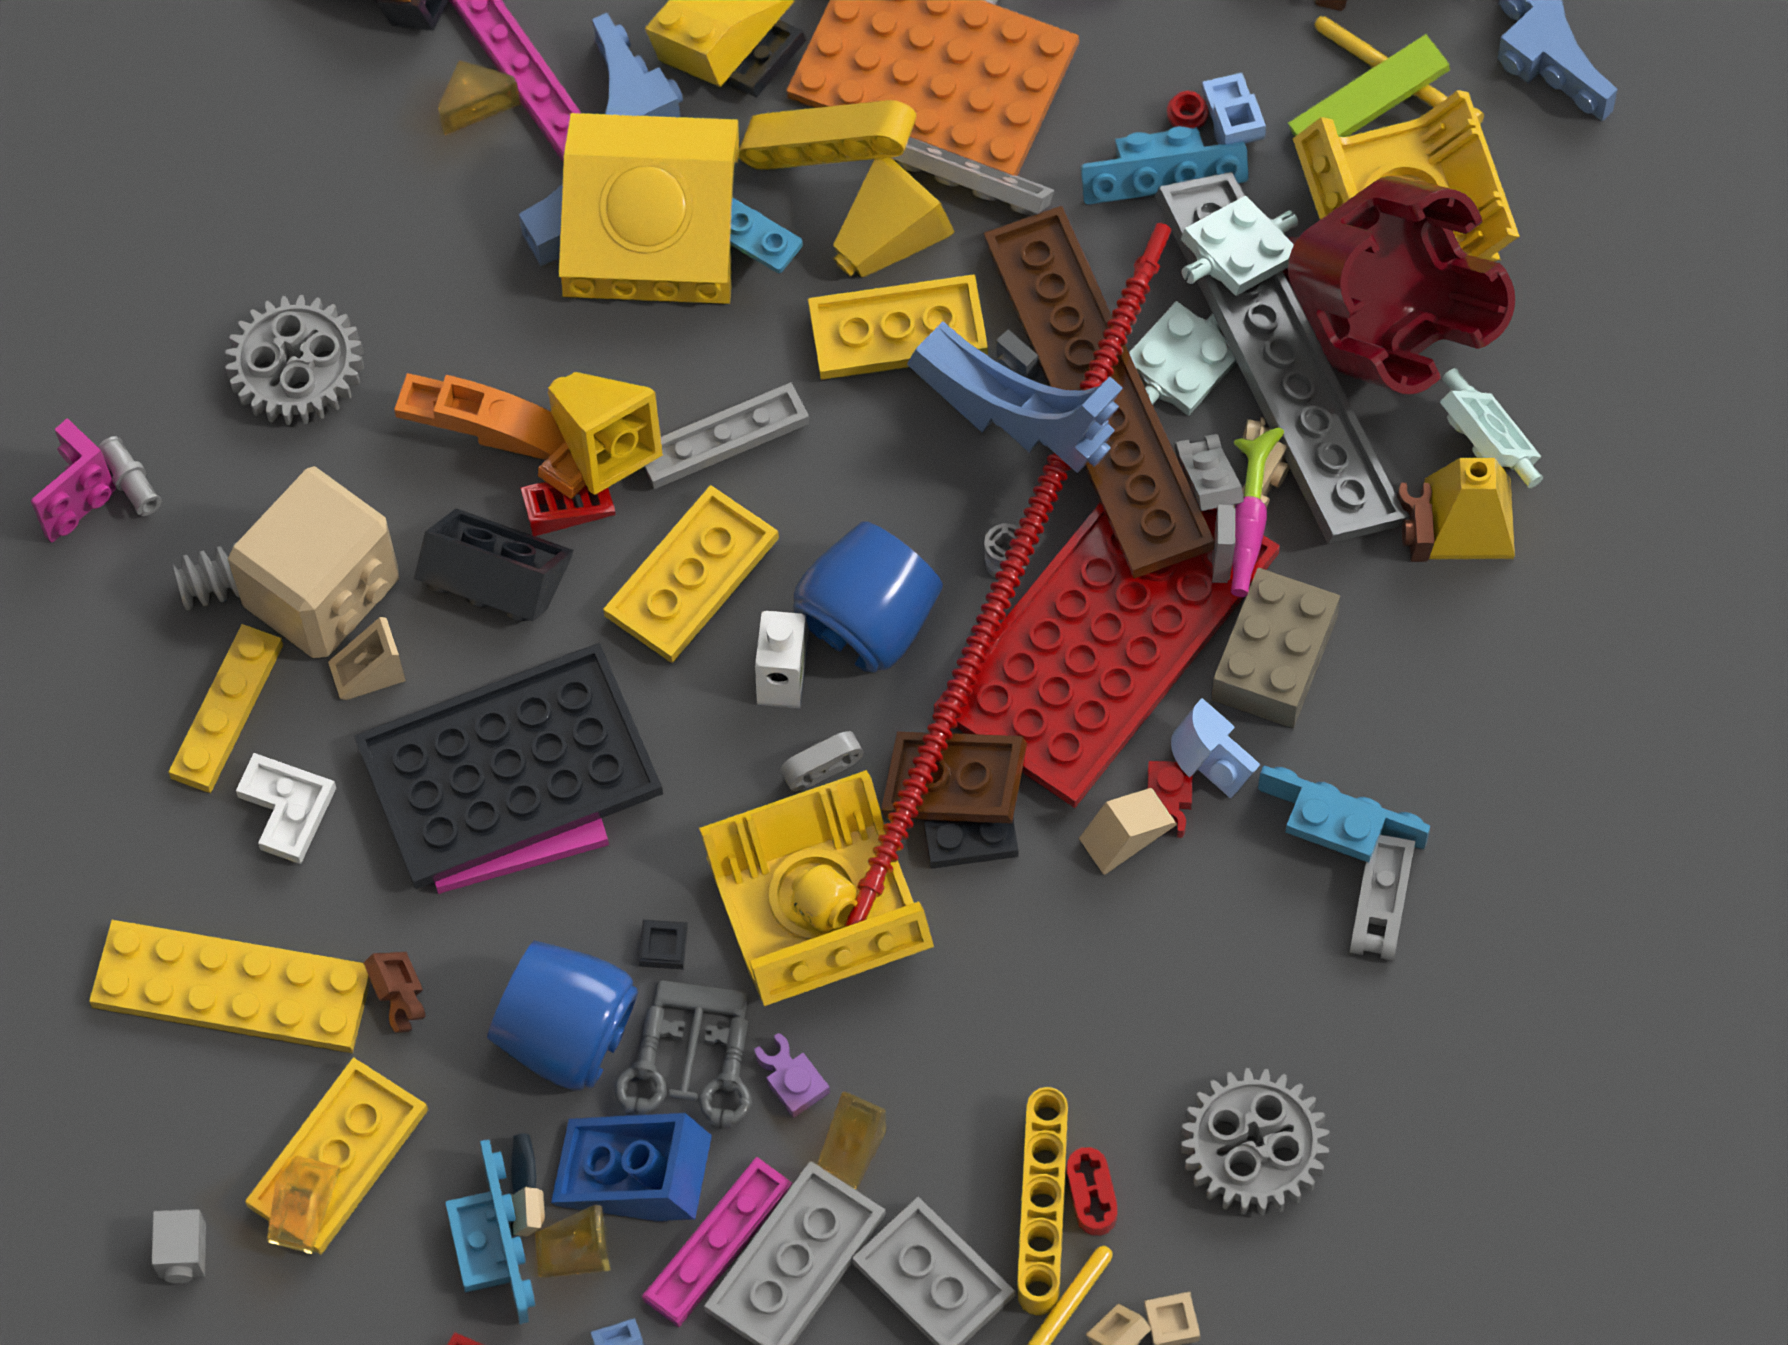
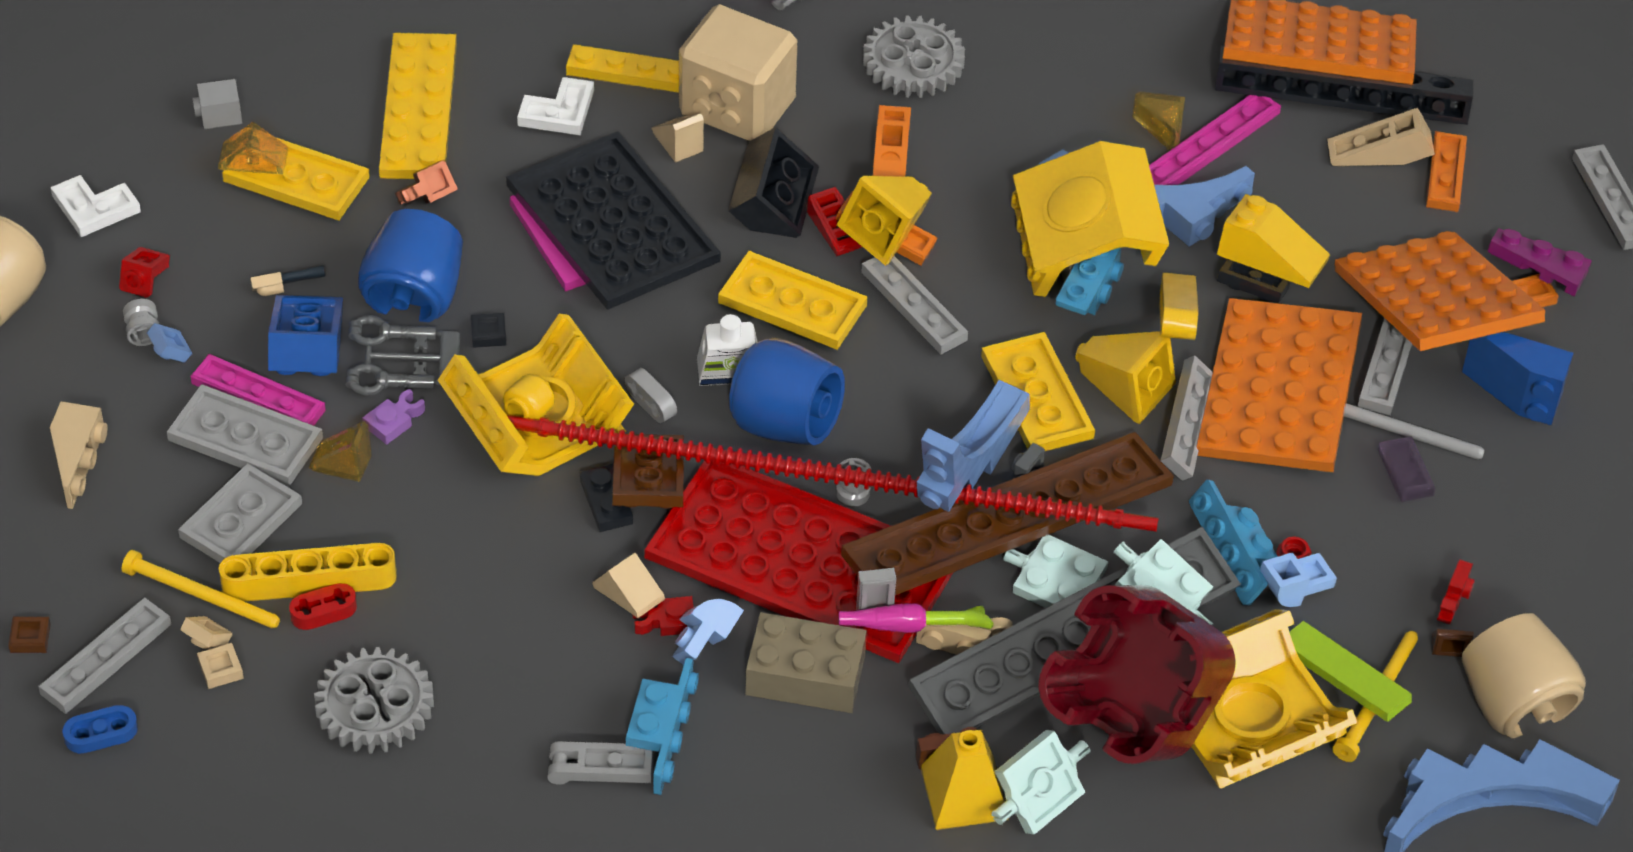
camera: 75 degrees right, 15 degrees down
(484, 1240) = (243, 260): dark azure bracket -> none
(574, 1245) = (243, 315): clear yellow slope -> none
(1209, 472) = (947, 593): light grey plate -> none

